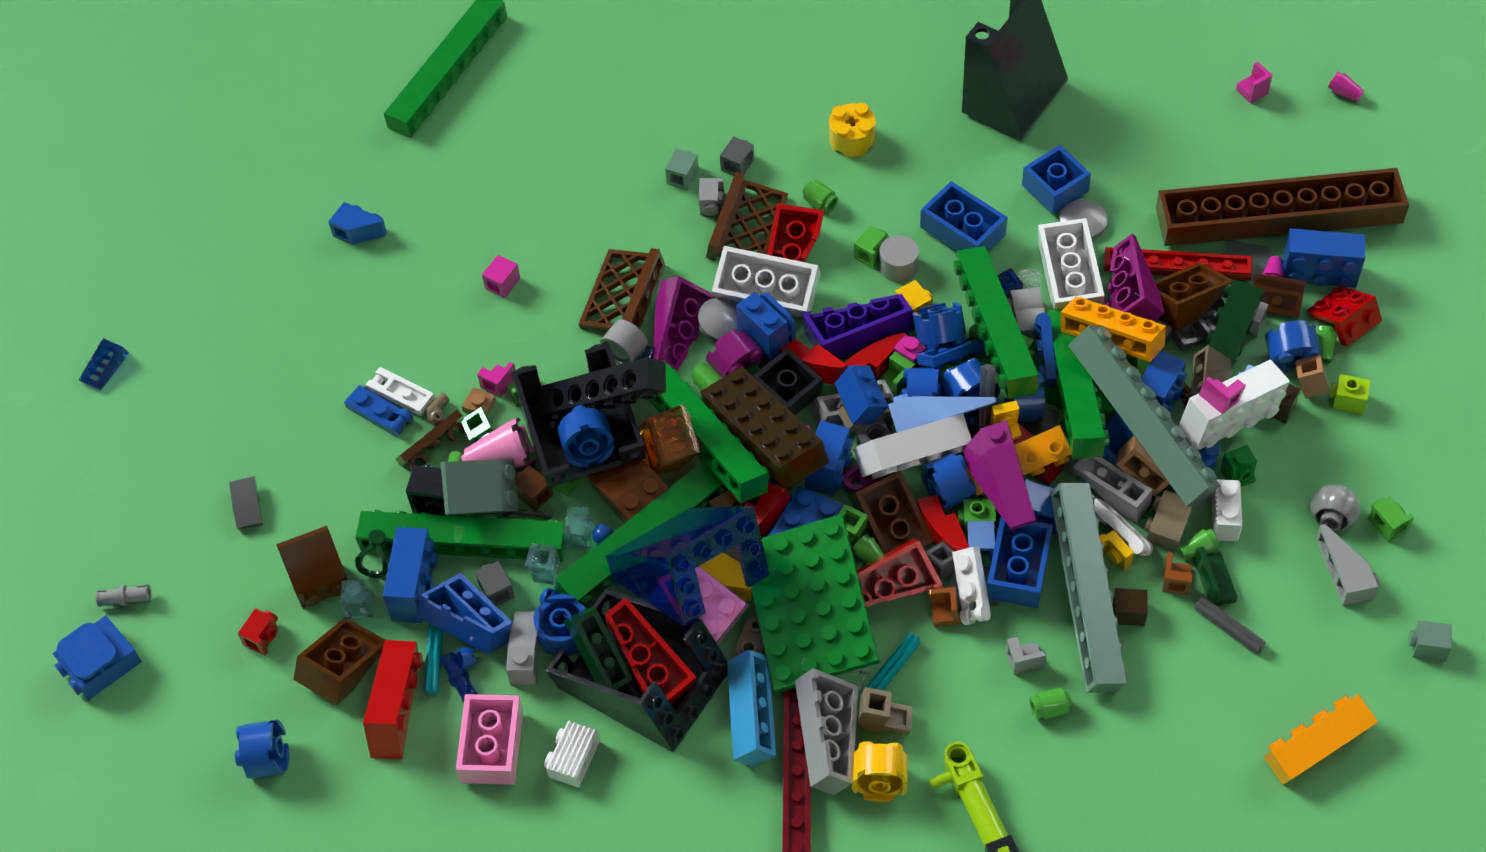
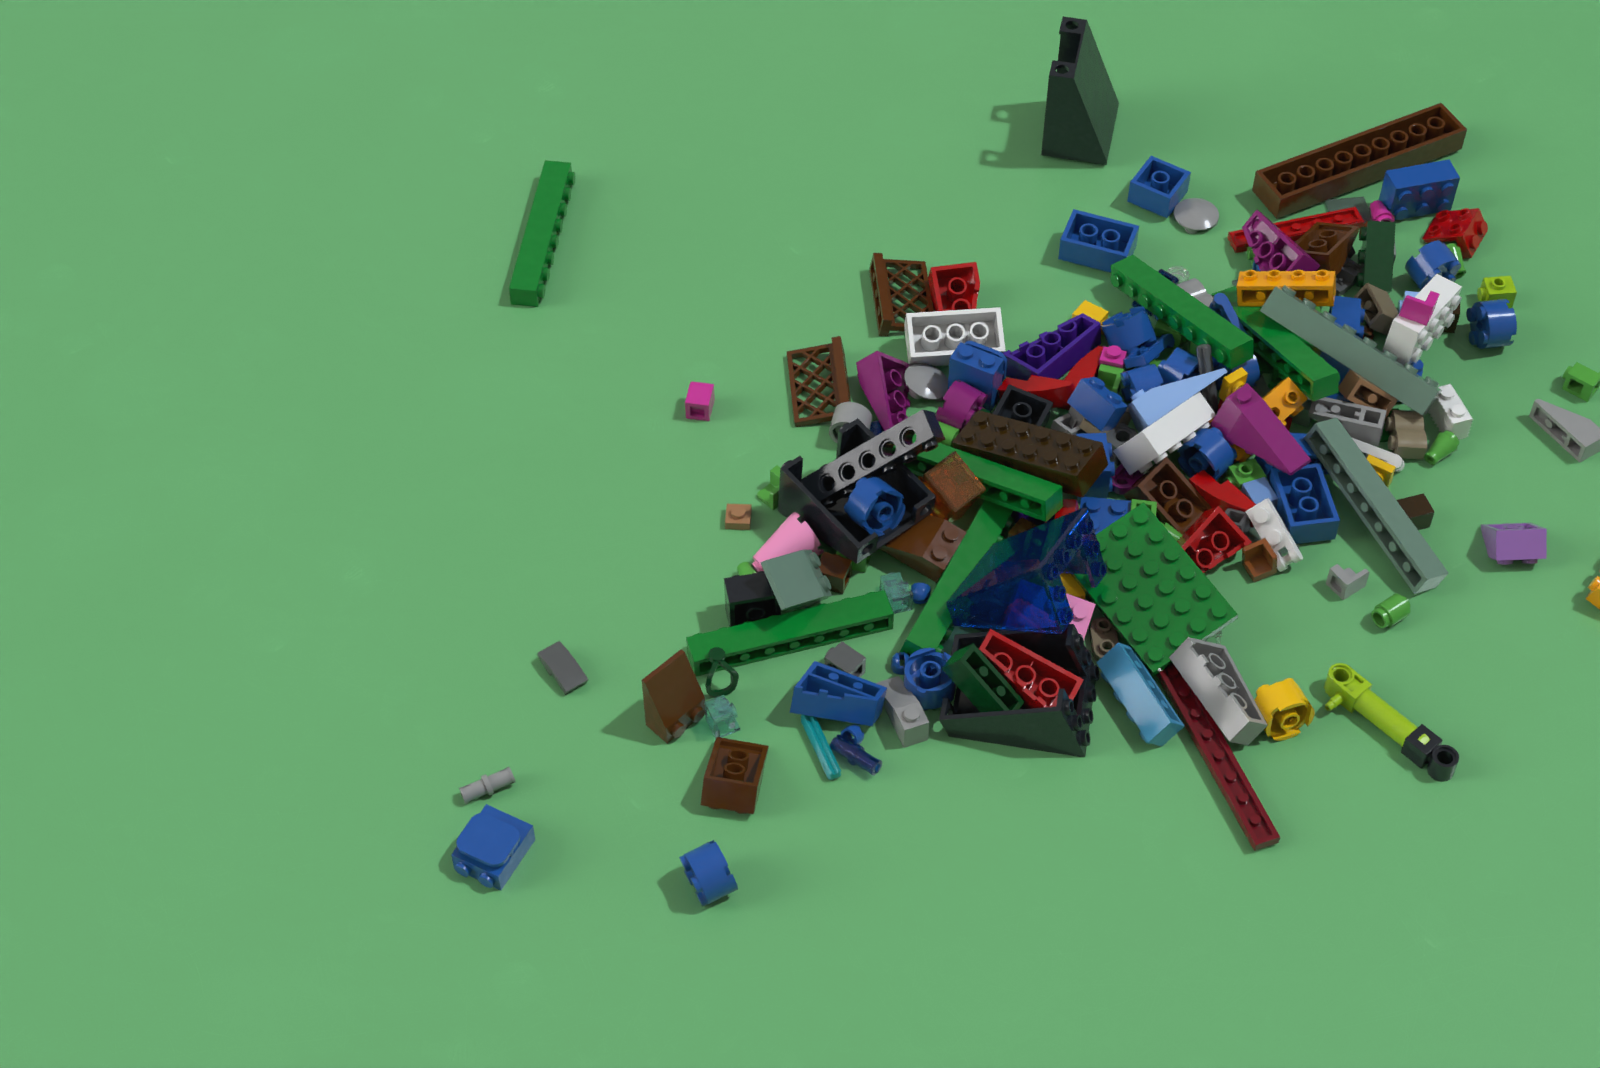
camera: 25 degrees left, 5 degrees down
(99, 355) = (341, 569): clear blue slope -> none
(259, 631) = (642, 774): red brick -> none
(356, 225) = (533, 394): blue slope -> none
(378, 410) = (645, 550): blue plate -> none
(392, 699) = (808, 791): red wedge -> none
(400, 391) = (657, 527): white plate -> none
(409, 573) = (765, 678): blue brick -> none
(432, 439) = (713, 559): reddish brown plate -> none
(434, 409) = (699, 533): dark tan arm -> none
(477, 425) = (753, 533): brick -> none
(489, 739) = (919, 795): bright pink brick -> none
(497, 380) = (745, 491): dark pink panel -> none
(543, 563) = (883, 631): clear light blue brick -> none
(547, 514) = (856, 592): dark grey hinge -> none
(572, 754) = (999, 784): white brick -> none
(682, 169) = (818, 265): sand green brick -> none
(710, 195) = (857, 281): light grey brick -> none
(737, 156) = (863, 242): dark grey brick -> none
(820, 196) = (956, 254): bright green brick -> none
(852, 129) = (955, 192): yellow brick -> none
(868, 246) = (1026, 285): bright green brick -> none
(879, 713) = (1256, 662): dark tan brick -> none
(895, 662) = (1238, 626): teal axle -> none
(899, 258) = (1057, 288): light grey piece -> none
(1069, 262) = (1209, 251): white brick -> none
(1176, 576) = (1436, 479): dark orange panel -> none
(1215, 577) = (1467, 470): dark green panel -> none
(1219, 671) = (1515, 542): none -> medium lavender slope
(1230, 625) = (1500, 504): dark grey axle -> none
(1239, 465) = (1442, 371): green brick -> none
(1256, 85) = (1282, 68): dark pink panel -> none
(1281, 293) = (1405, 230): reddish brown plate -> none
(1312, 376) = (1465, 279): medium nougat brick -> none
(1321, 427) = (1491, 324): none -> blue brick
(1335, 507) = (1538, 383): light grey plant -> none
(1345, 87) = (1356, 53): dark pink cone -> none

